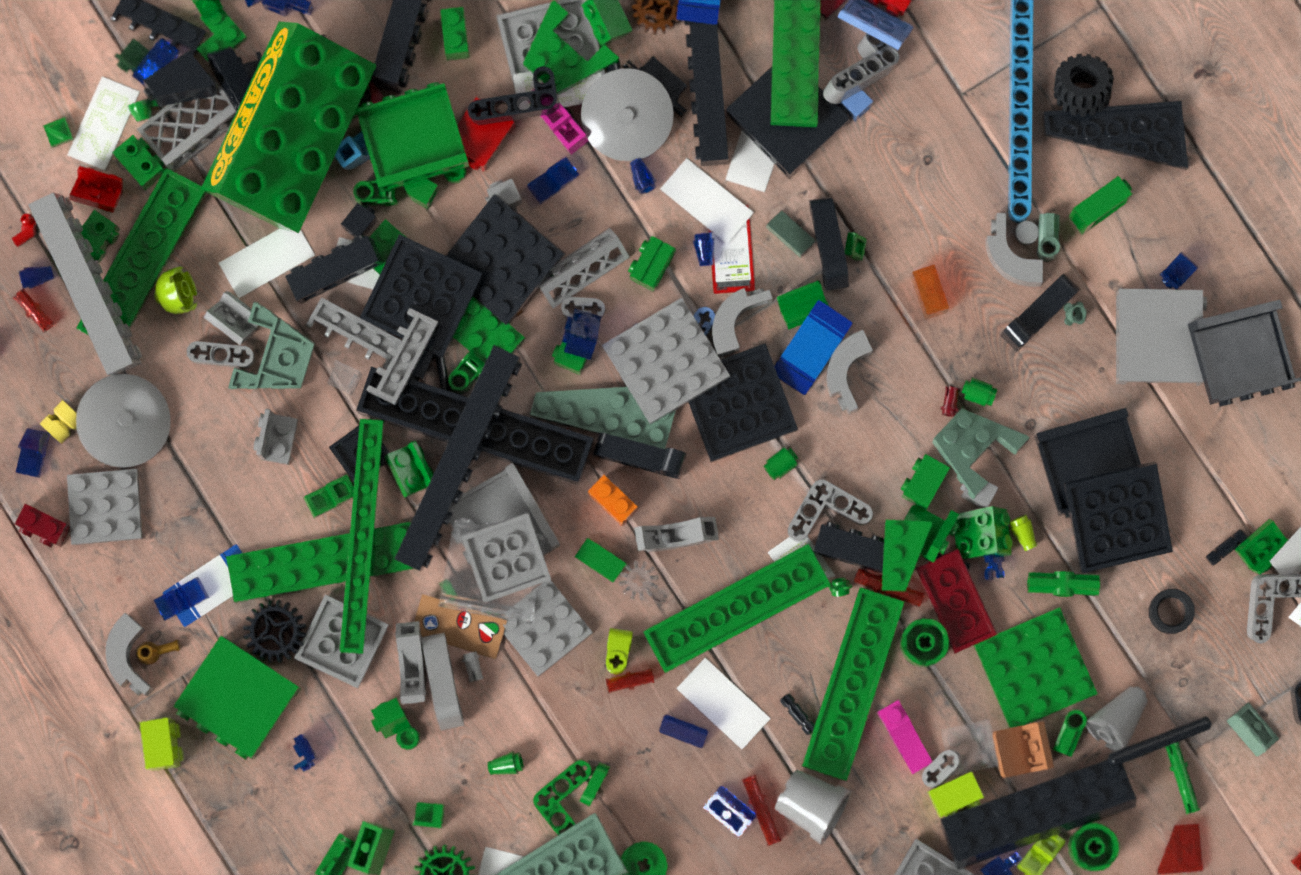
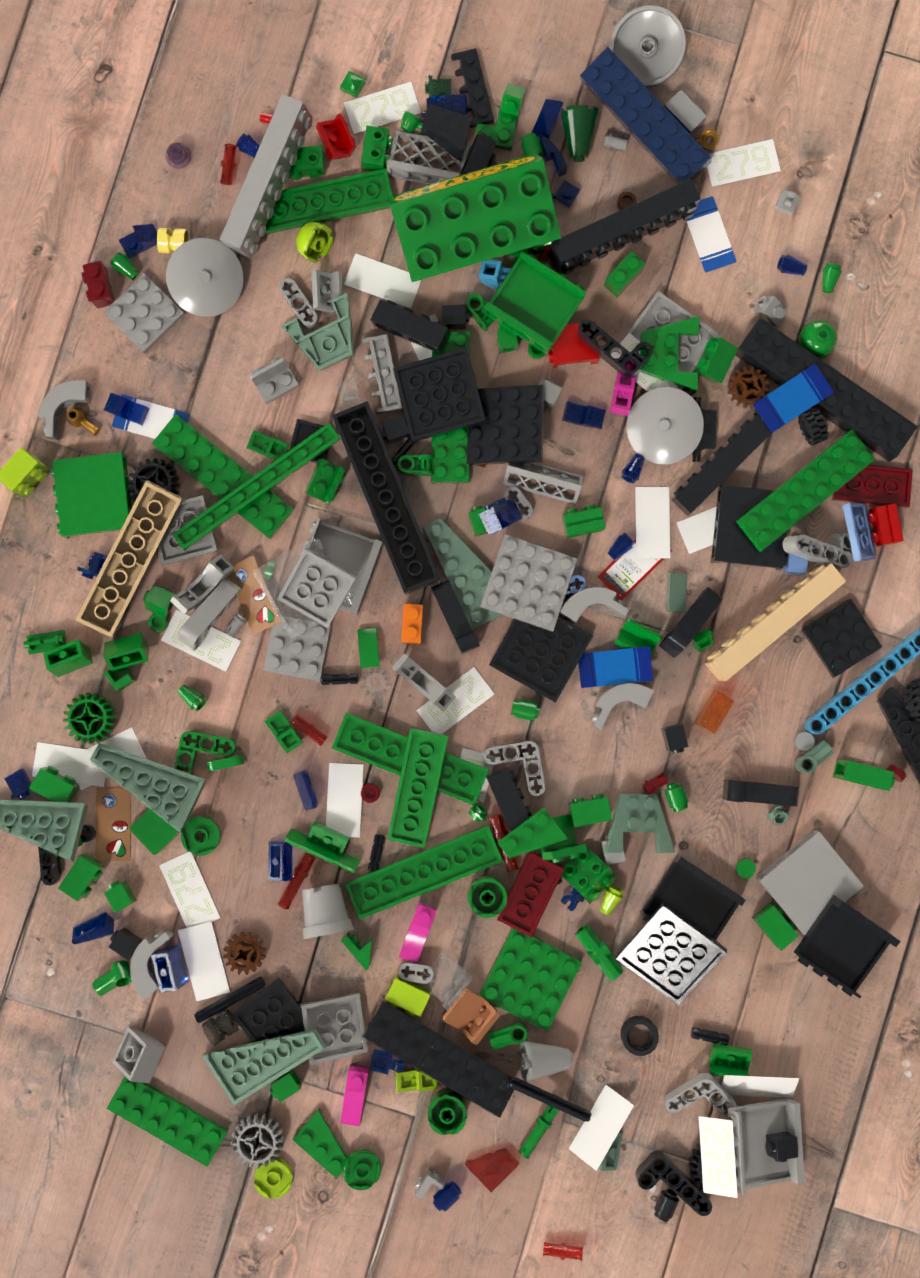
camera: 40 degrees right, 5 degrees up
(45, 487) = (123, 265): none -> green cone
(263, 18) = (531, 144): none -> green brick
(328, 710) = (128, 558): none -> tan brick
(333, 22) = (567, 193): none -> clear blue plate
(405, 357) = (390, 417): light grey hinge -> none
(411, 788) = (126, 651): none -> green brick
(458, 457) = (355, 504): black brick -> none
(479, 706) = (216, 648): none -> white sticker
(606, 612) = (337, 679): none -> black axle
(610, 705) = (283, 731): none -> green slope
(618, 646) = (324, 704): lime piece -> none
(723, 501) = (469, 693): none -> white sticker
(737, 673) = (370, 793): none -> dark red tile
(750, 753) = (325, 844): none -> green bracket
(769, 622) = (417, 787): none -> green plate
(881, 804) = (362, 953): none -> green slope
(893, 168) = (775, 622): none -> tan brick
(924, 348) = (675, 738): none -> black brick
(960, 119) = (841, 638): none -> black plate
(1013, 268) = (775, 744): light grey arch -> none
(1098, 384) = (745, 868): none -> green tile
(1128, 173) = (899, 774): none -> dark red tile
(1174, 401) = (775, 926): none -> green brick
(1178, 271) = (862, 859): clear blue bracket -> none
(1229, 719) = (605, 1123): none -> white sticker

